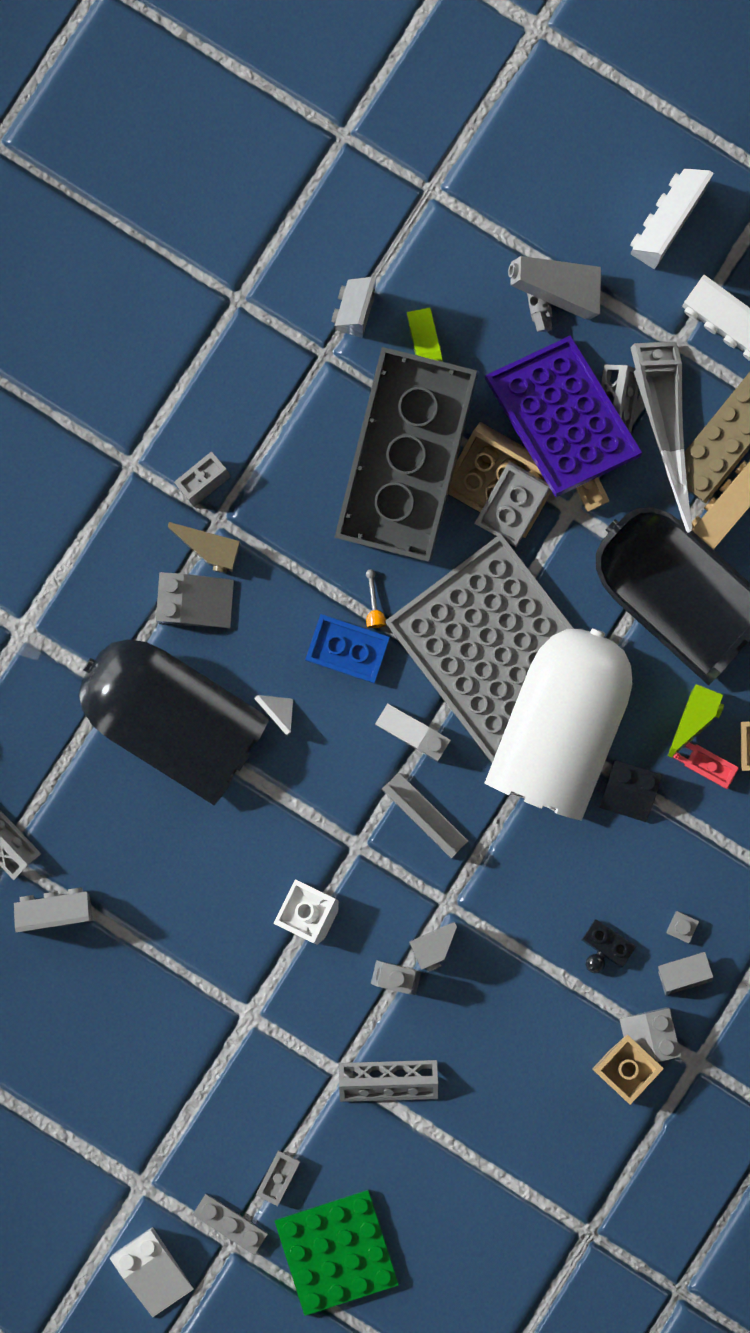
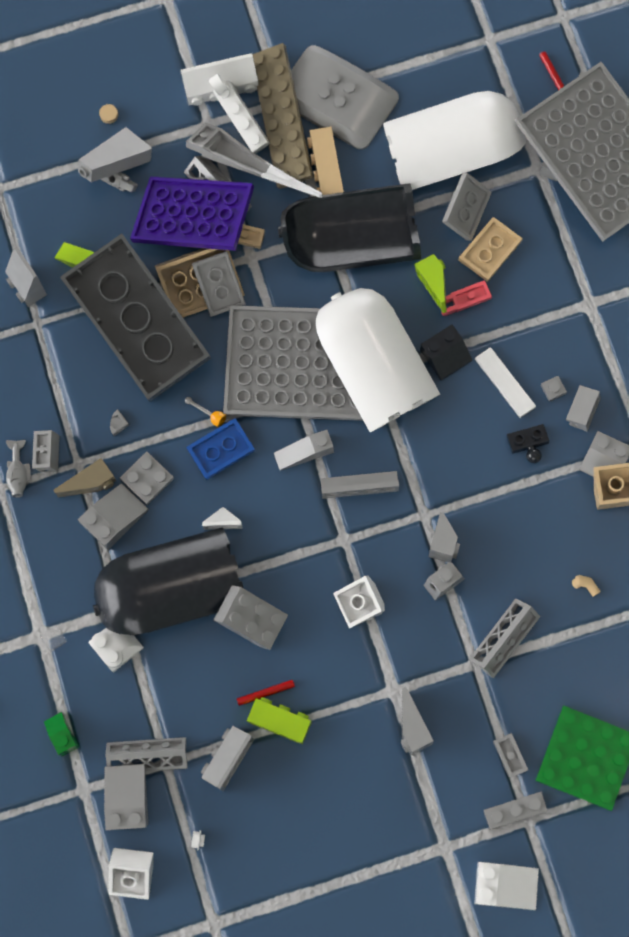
camera: 40 degrees left, 10 degrees down
(66, 714) = (115, 648): none -> white slope
(129, 930) = (279, 720): none -> lime brick
(146, 894) = (265, 692): none -> red bar
(159, 469) = (17, 473): none -> light grey animal
(202, 822) = (250, 617): none -> light grey brick
(224, 1067) = (414, 731): none -> light grey slope
(259, 600) = (146, 478): none -> light grey plate
(290, 524) = (118, 423): none -> light grey tile
(509, 1117) = (587, 582): none -> tan arm
(603, 233) = (108, 113): none -> tan tile
(648, 874) = (505, 382): none -> white tile
(670, 216) = (131, 66): white slope -> none
(708, 373) = (239, 114): none -> white hinge

